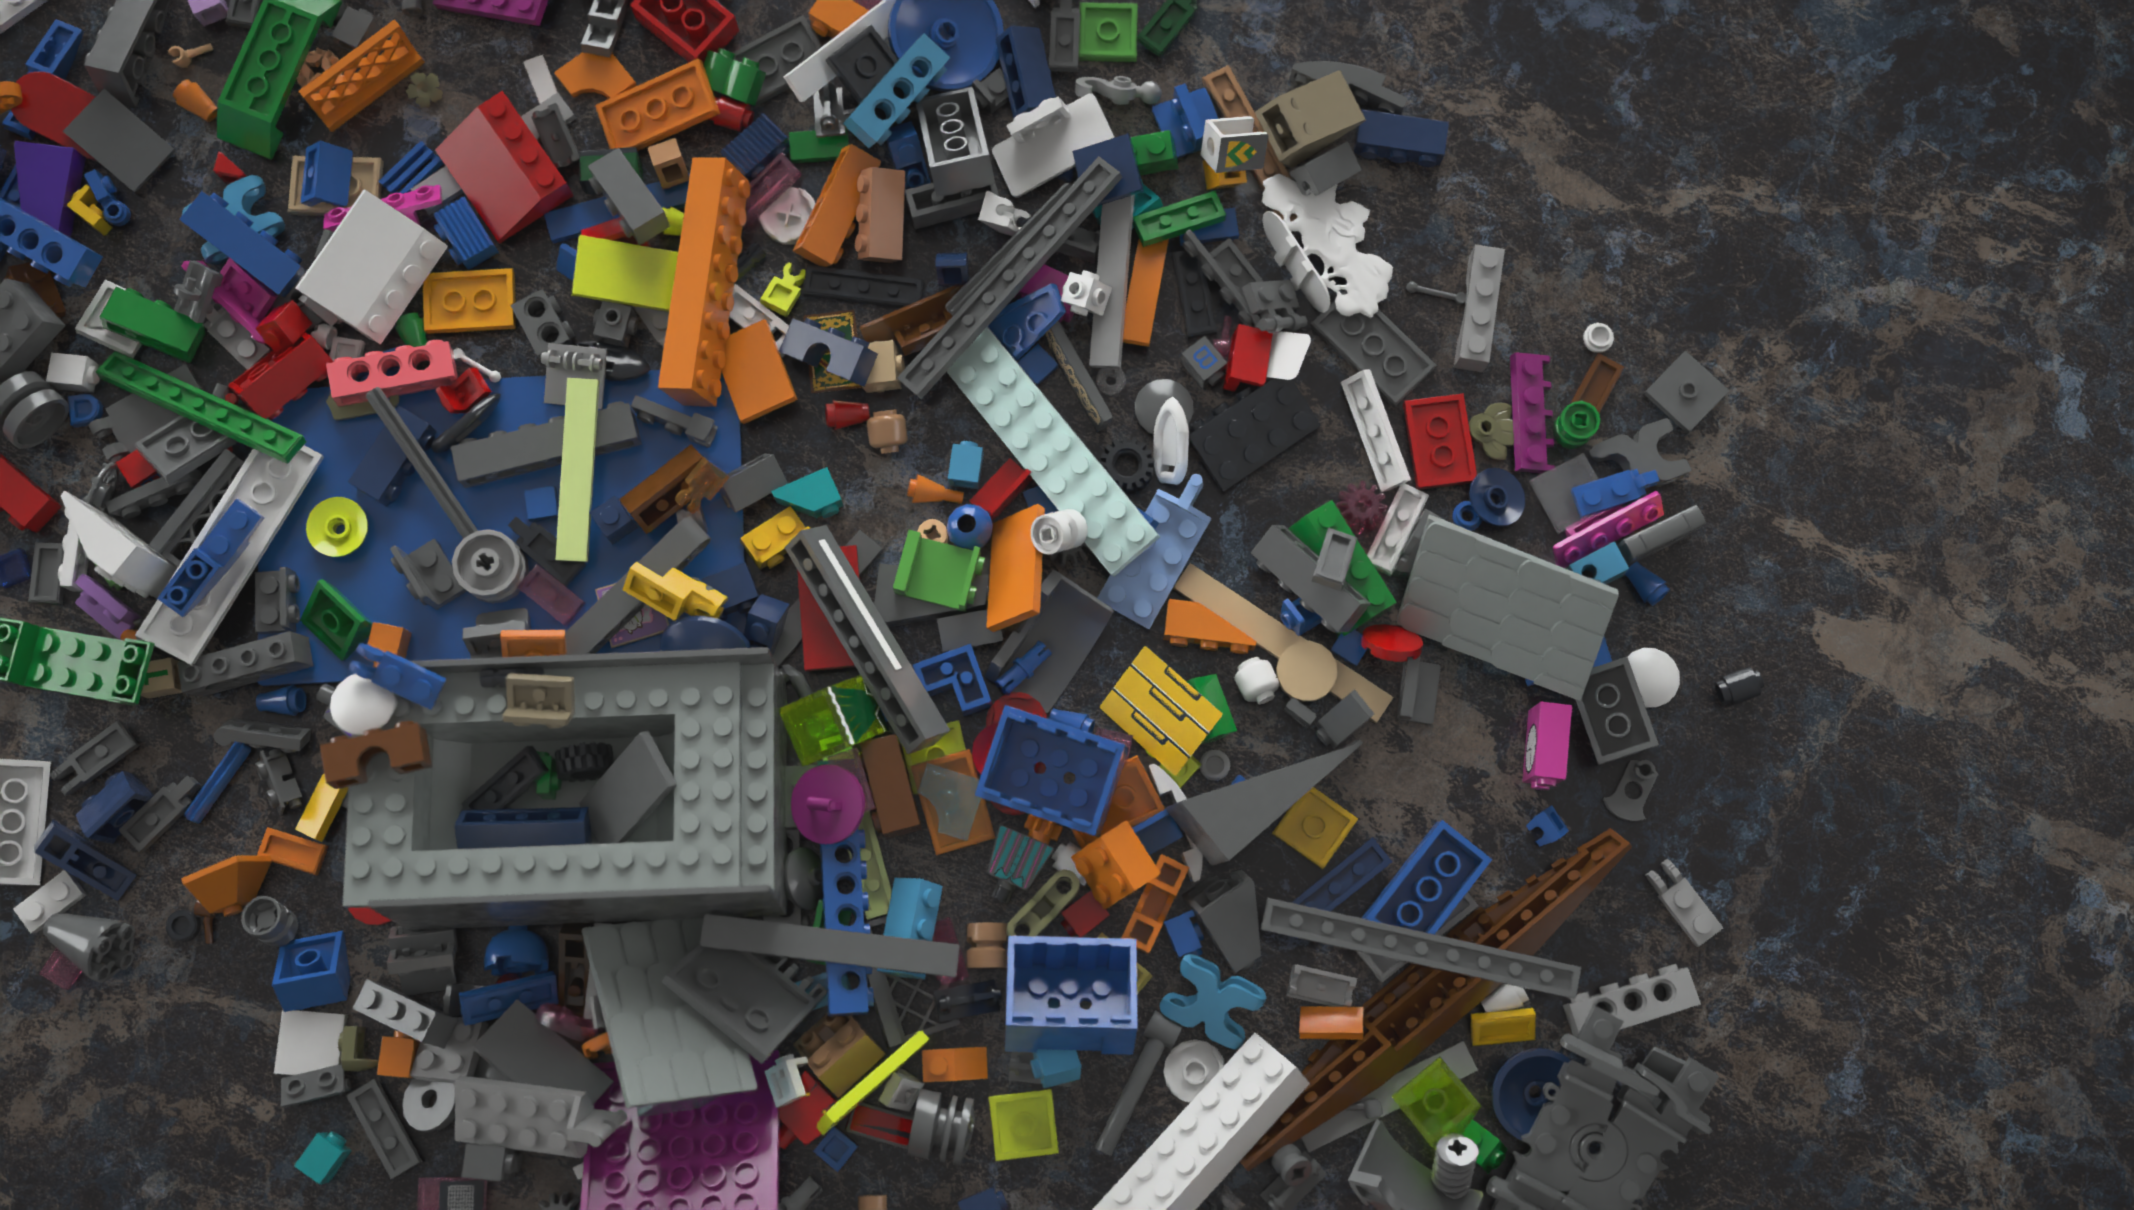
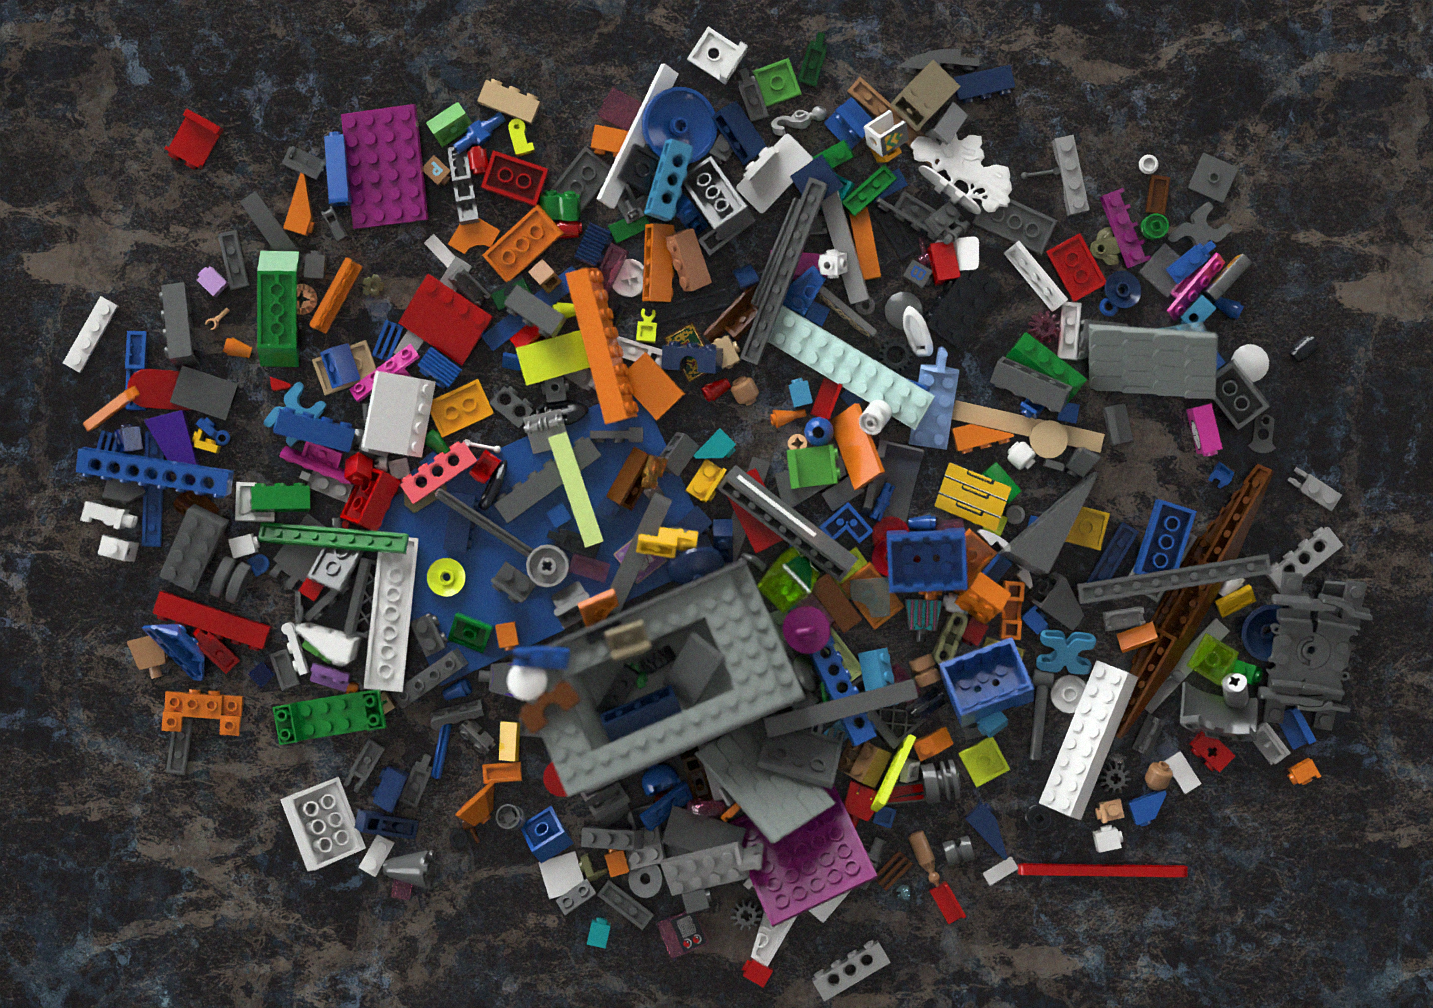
camera: 15 degrees left, 10 degrees up
(197, 291) = (301, 470): dark grey hips -> none
(213, 558) = (388, 627): blue slope -> none
(785, 1080) = (843, 790): white bracket -> none
(1001, 214) = (761, 232): white hinge -> none
(1291, 1165) = (1144, 726): dark grey wheel -> none
(1334, 559) = (1042, 370): tile -> none
(1391, 642) = (1092, 403): red tile -> none

